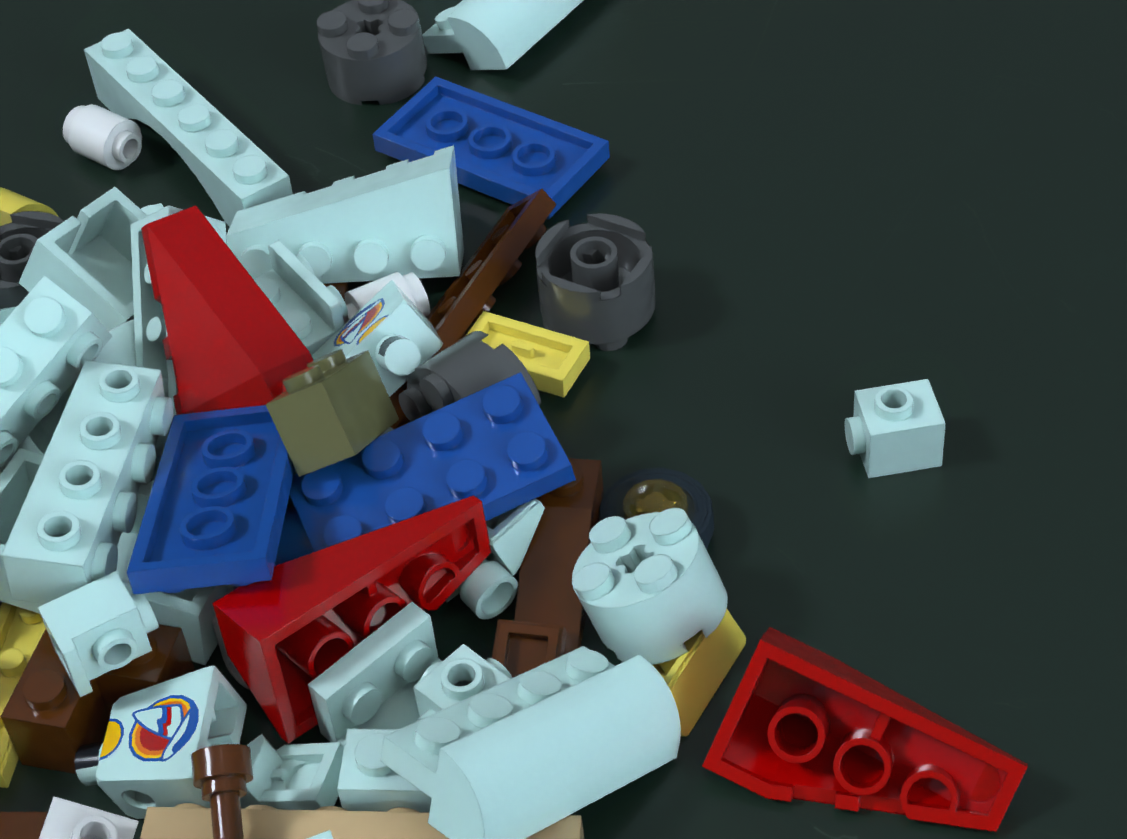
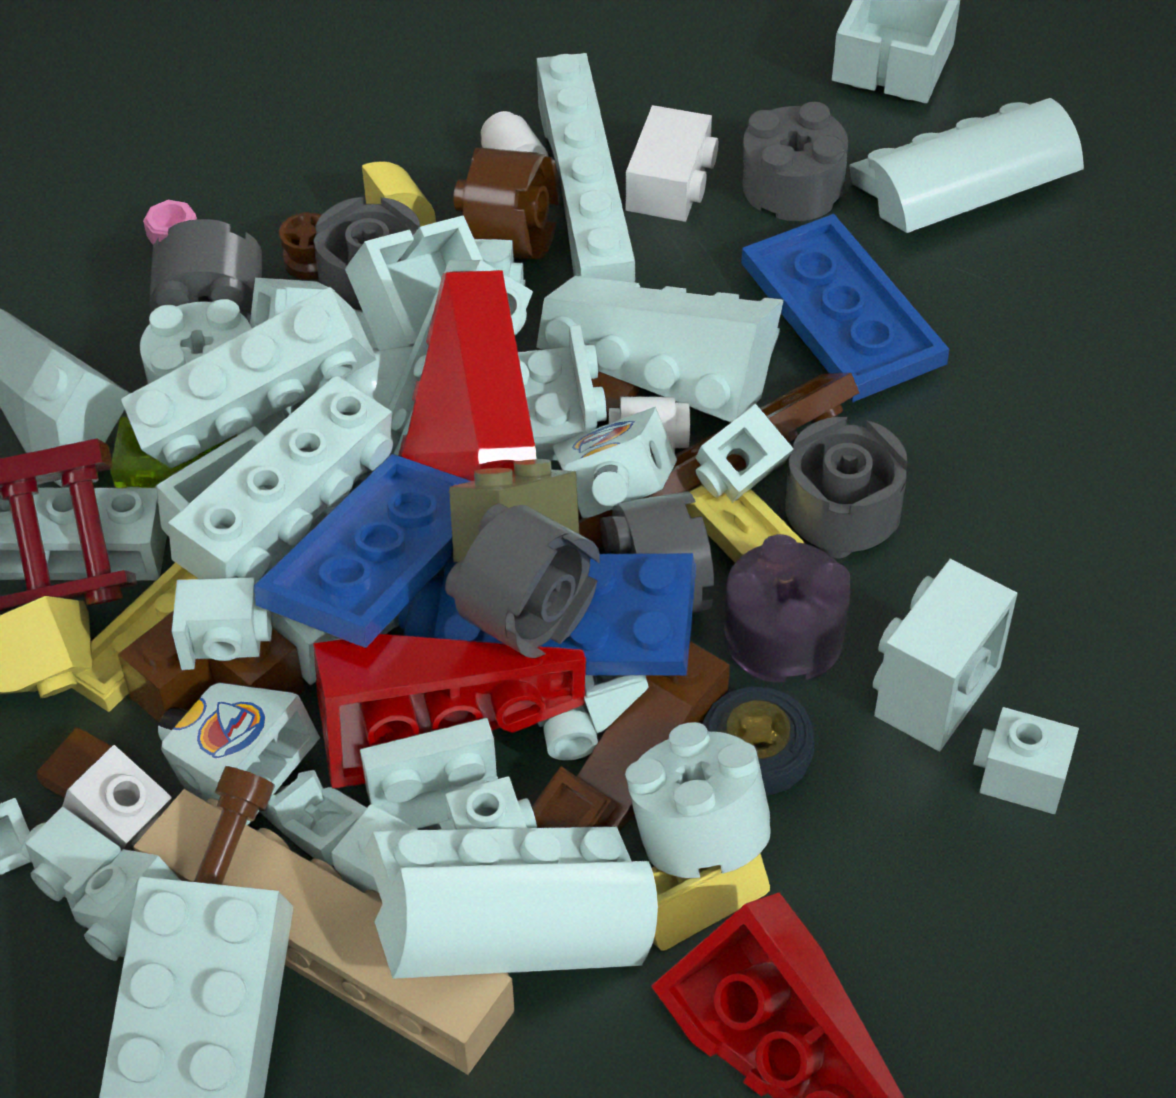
camera: 25 degrees right, 5 degrees up
(134, 161) = (510, 199): none -> reddish brown brick
(261, 91) = (670, 163): none -> white brick
(391, 449) = (524, 579): none -> dark grey brick
(495, 287) = (753, 439): none -> light aqua brick
(612, 399) = (786, 610): none -> clear purple brick
(773, 372) = (942, 653): none -> light aqua brick

